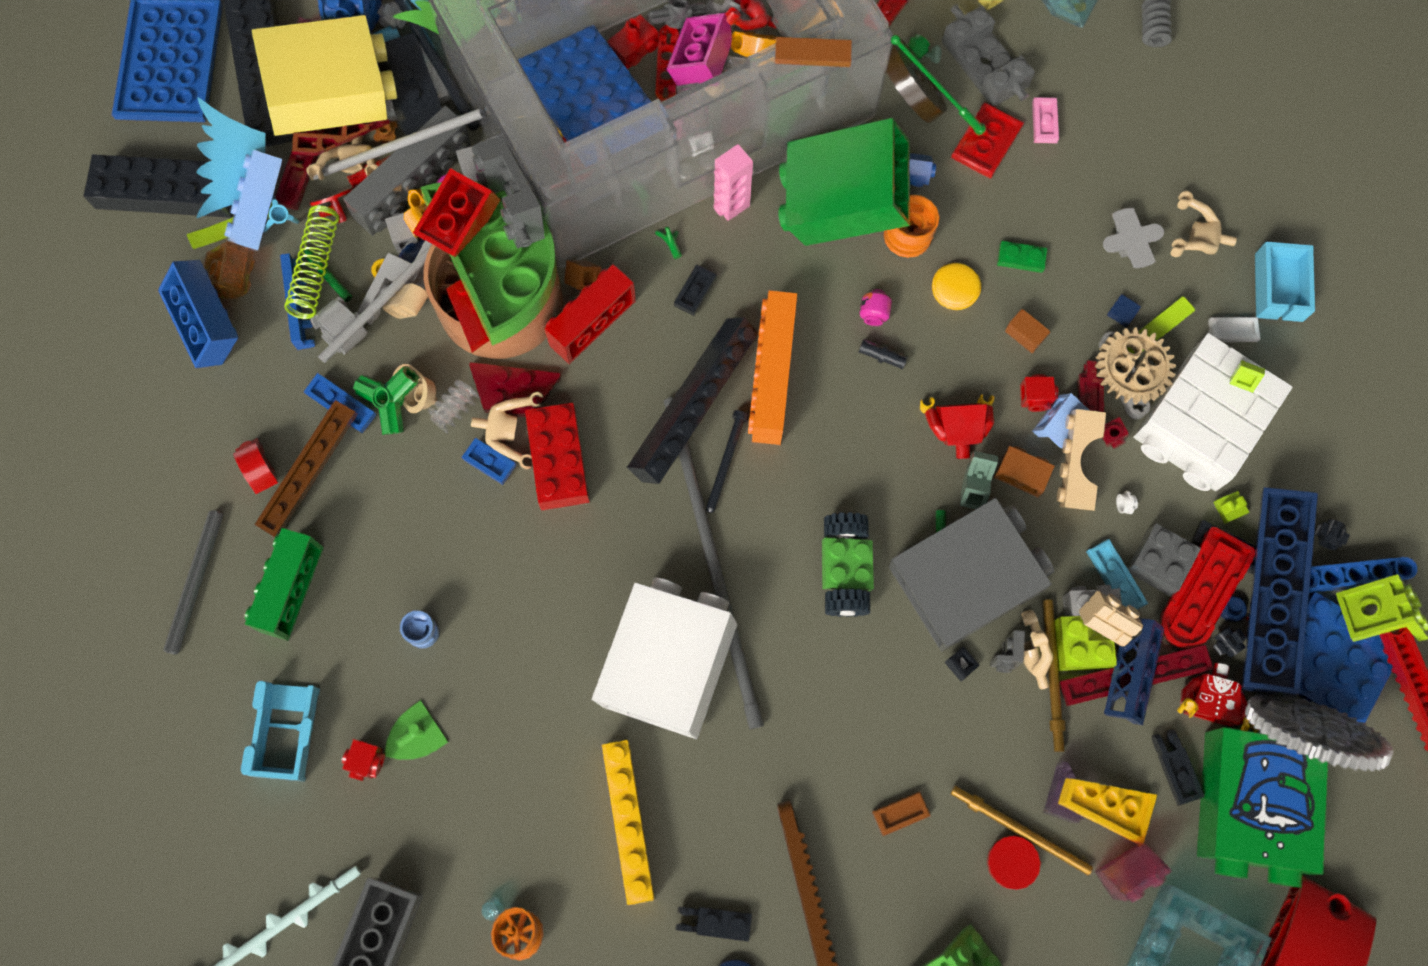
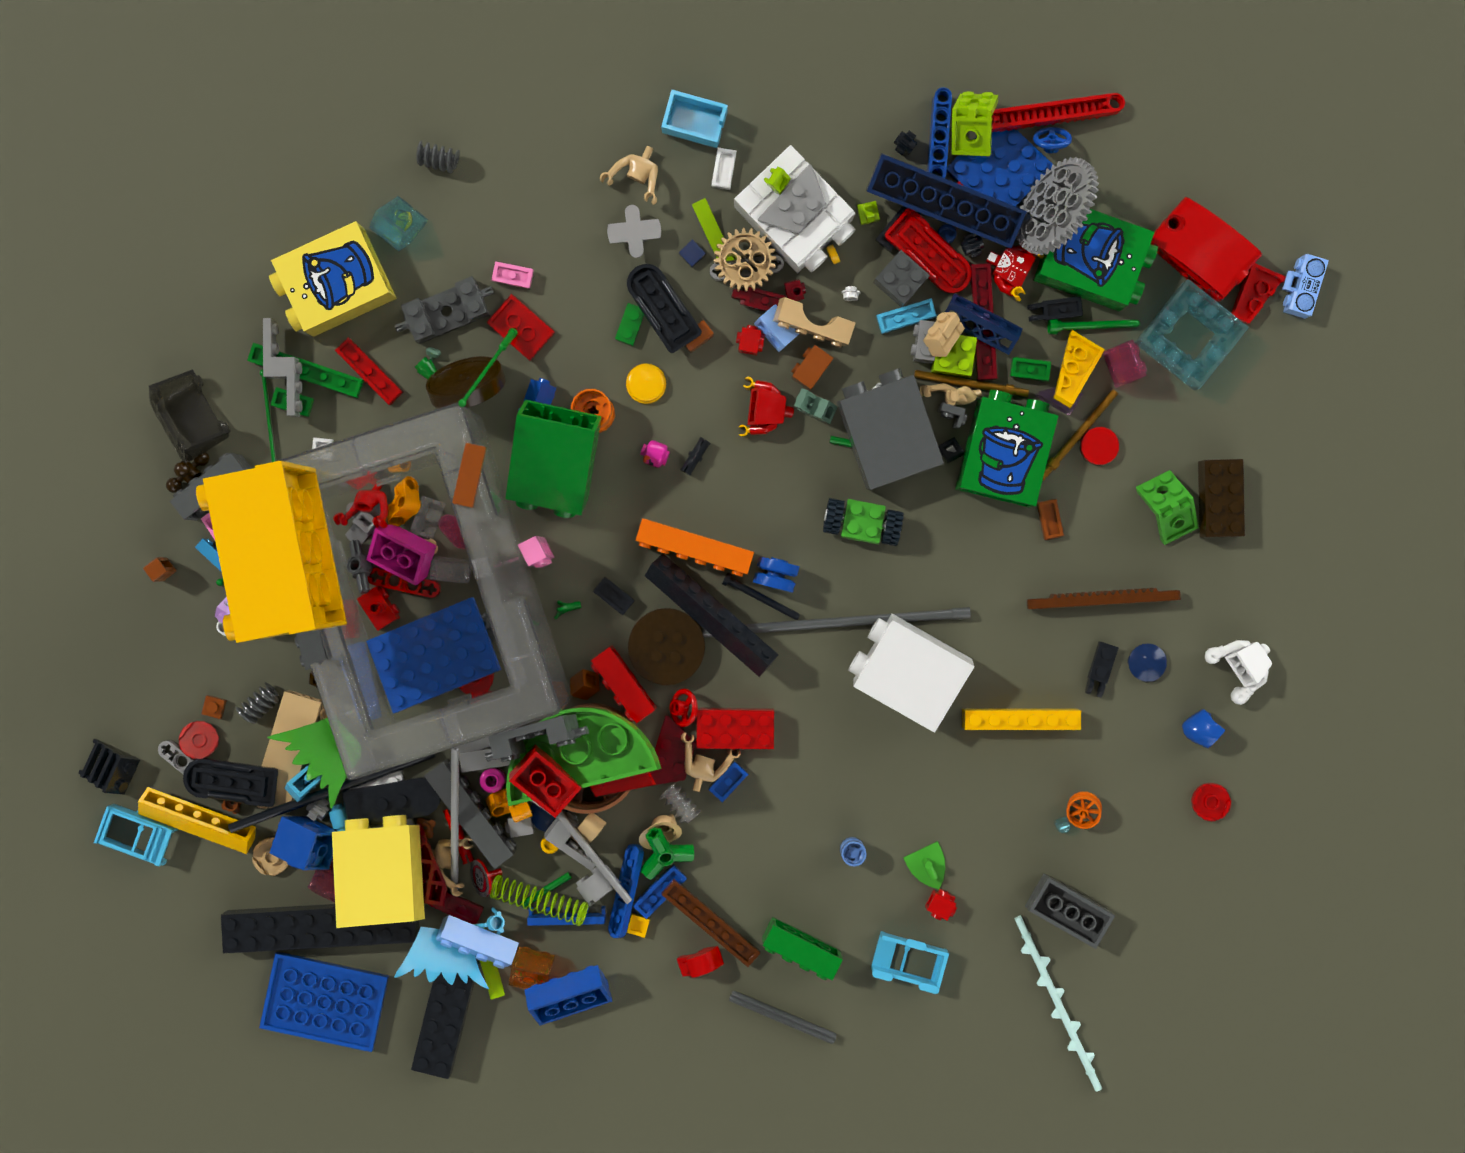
camera: 75 degrees left, 15 degrees up
(293, 386) = (638, 925): none -> yellow tile
(347, 364) = (629, 879): none -> blue piece
(572, 388) = (680, 708): none -> red piece
(644, 359) = (666, 646): none -> dark brown brick
(760, 468) = (776, 573): none -> blue wheel
(981, 732) = (1007, 449): none -> green brick
(1051, 284) = (662, 307): none -> black piece
(1091, 748) = (1030, 369): none -> green plate
(1156, 773) = (1055, 326): none -> green piece
(1169, 472) = (833, 254): none -> yellow tile
(1223, 404) = (796, 204): none -> light grey wing
(1392, 720) = (1052, 142): none -> blue piece

